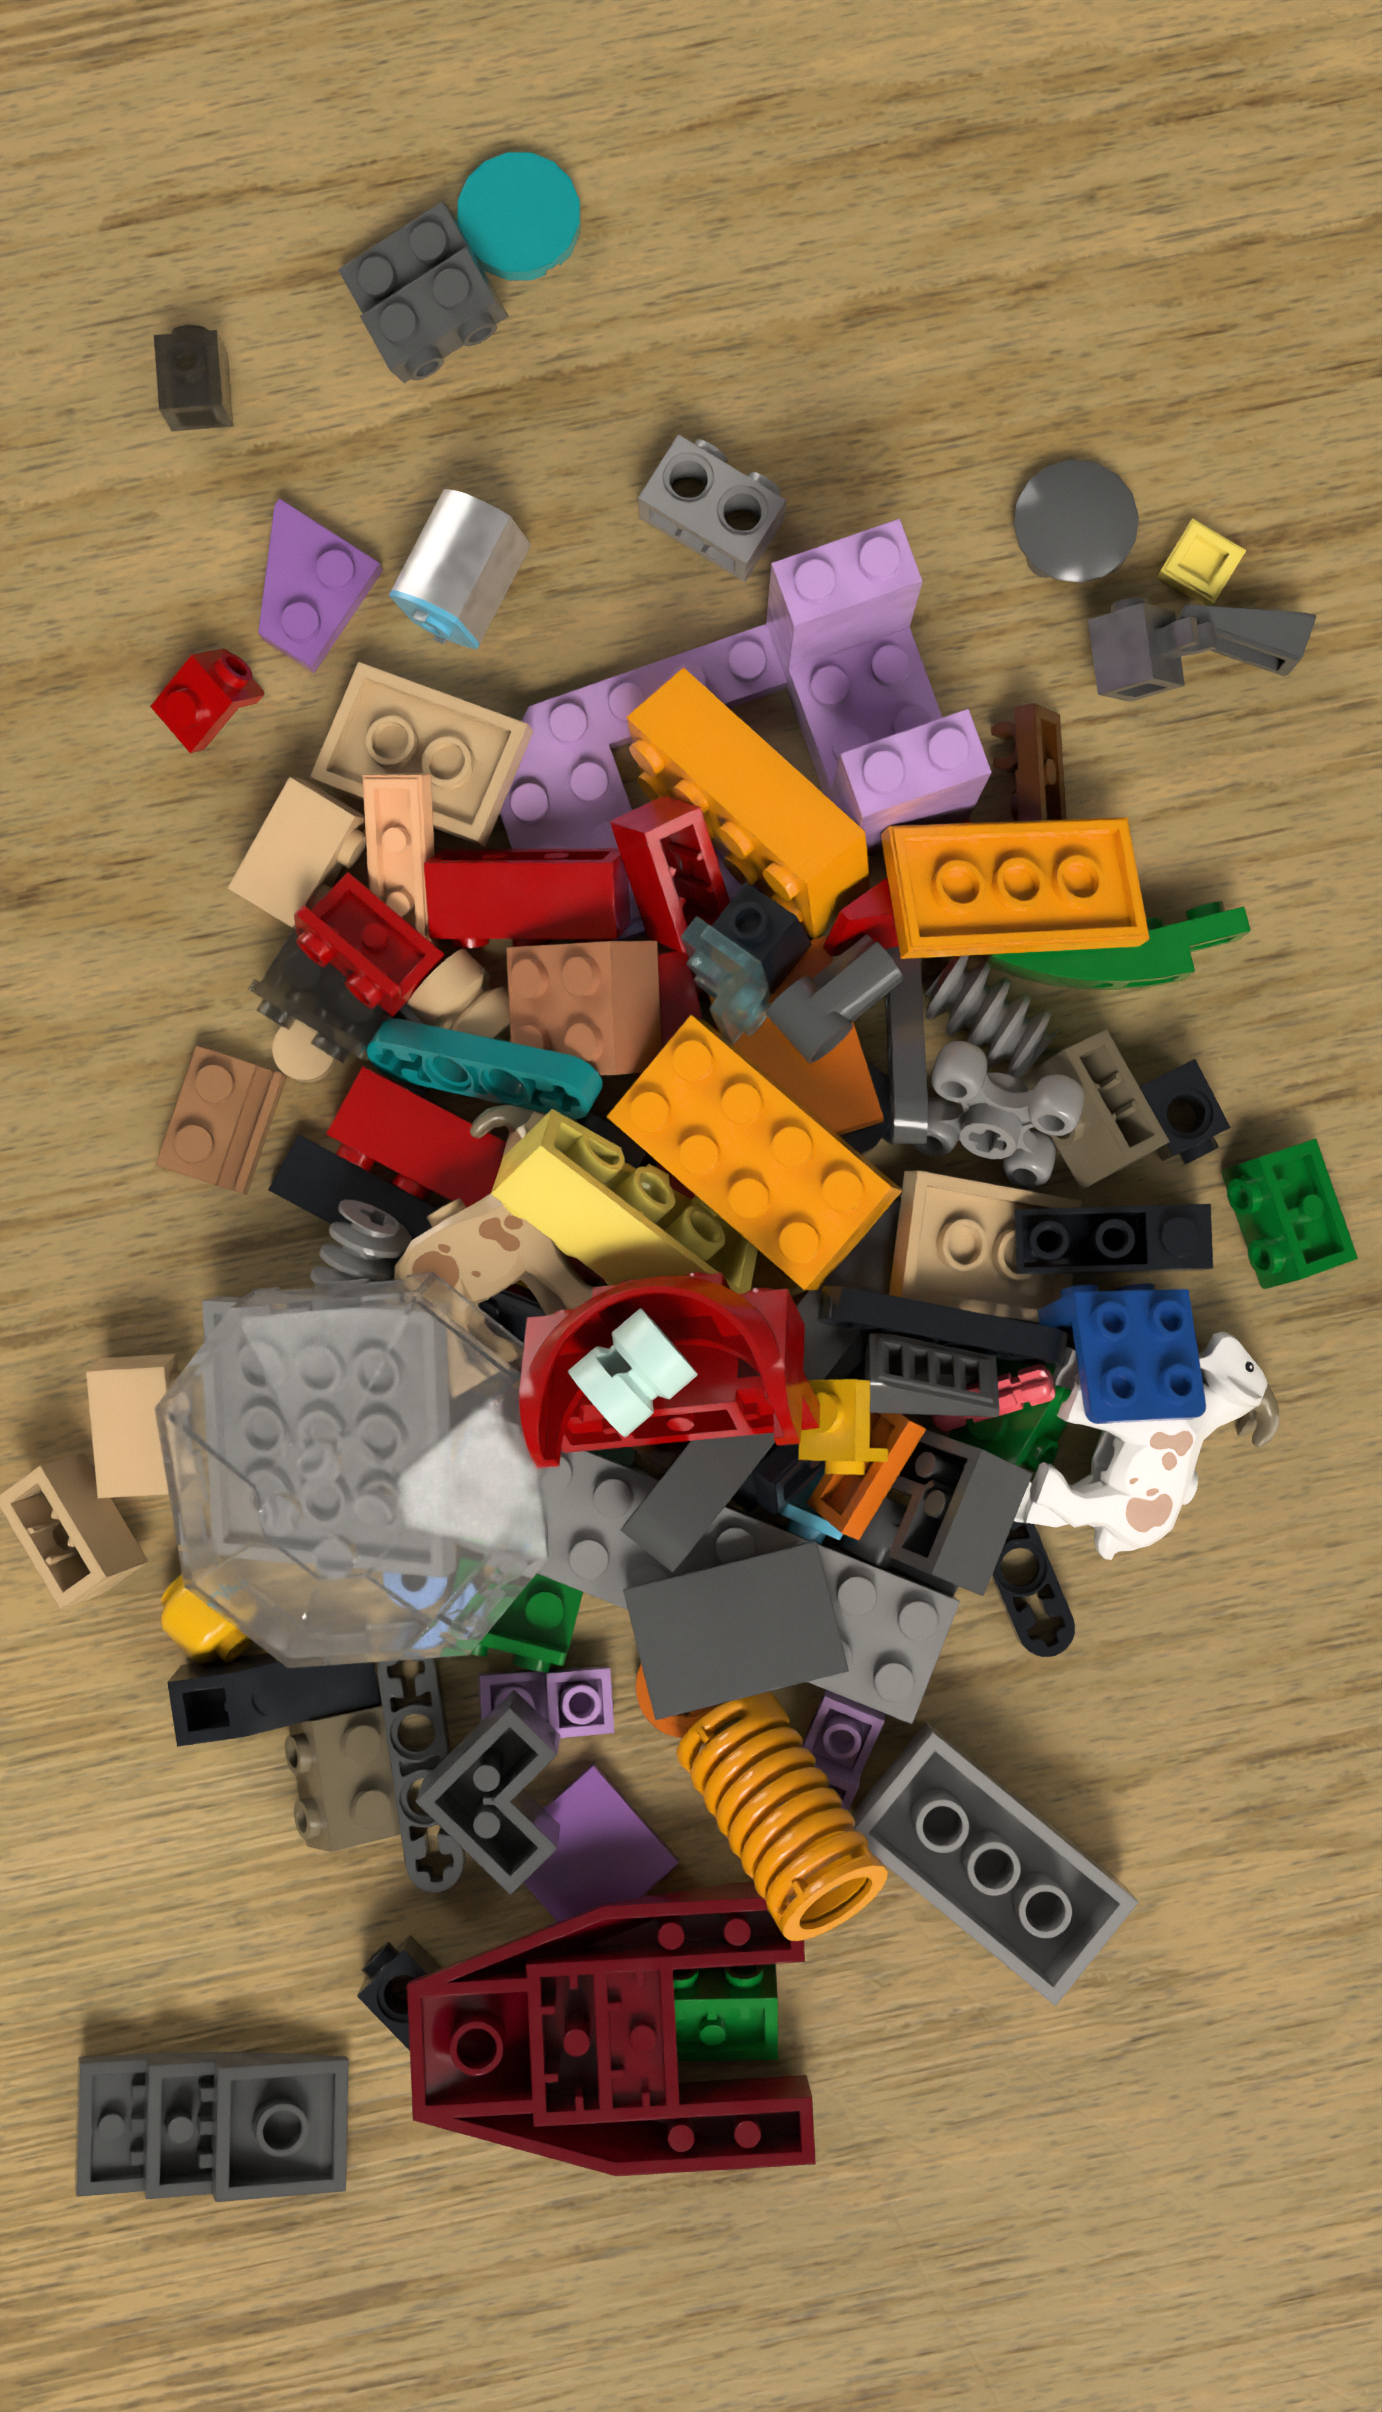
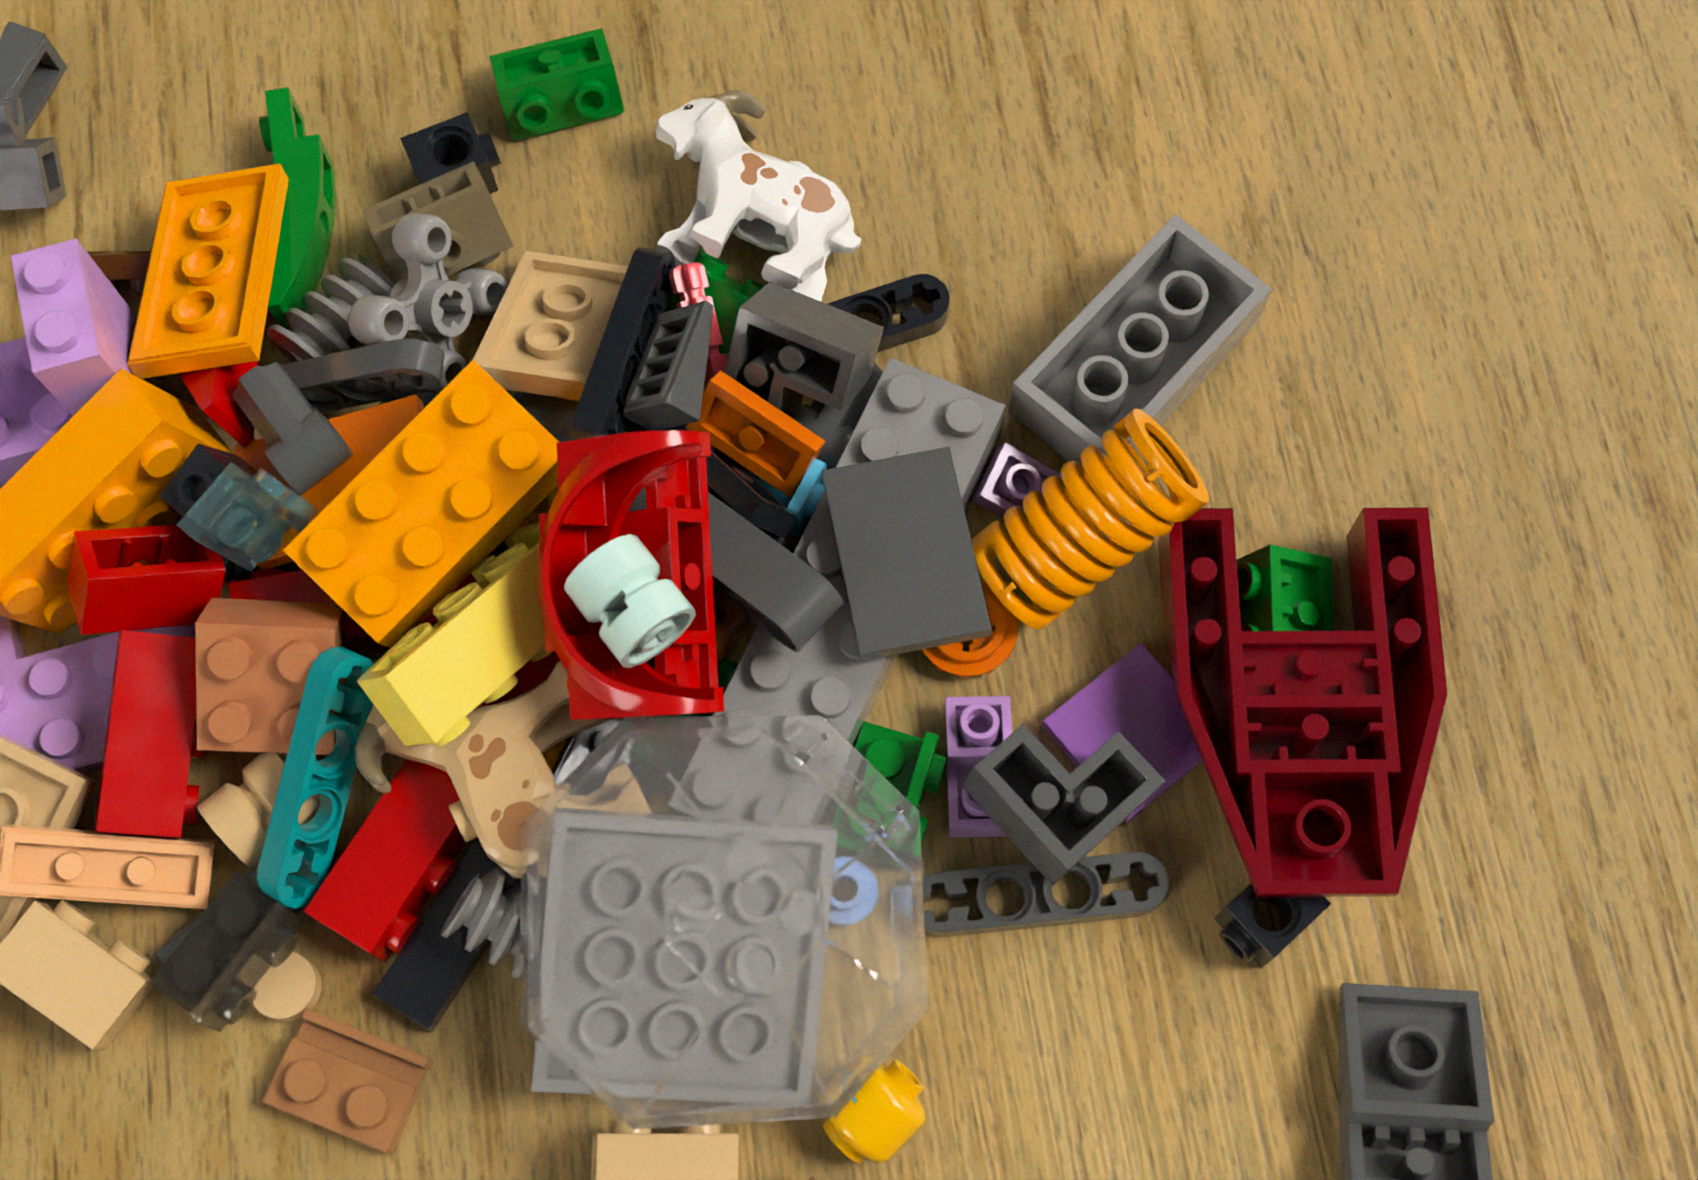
camera: 90 degrees left, 15 degrees down
(262, 1695) = (958, 1049): black slope -> none
(343, 1779) = (1051, 976): dark tan bracket -> none
(367, 944) = (174, 898): red bracket -> none
(843, 1429) = (731, 433): yellow bracket -> none
(1114, 1239) = (562, 212): black slope -> none
(1132, 1352) = (662, 192): blue bracket -> none

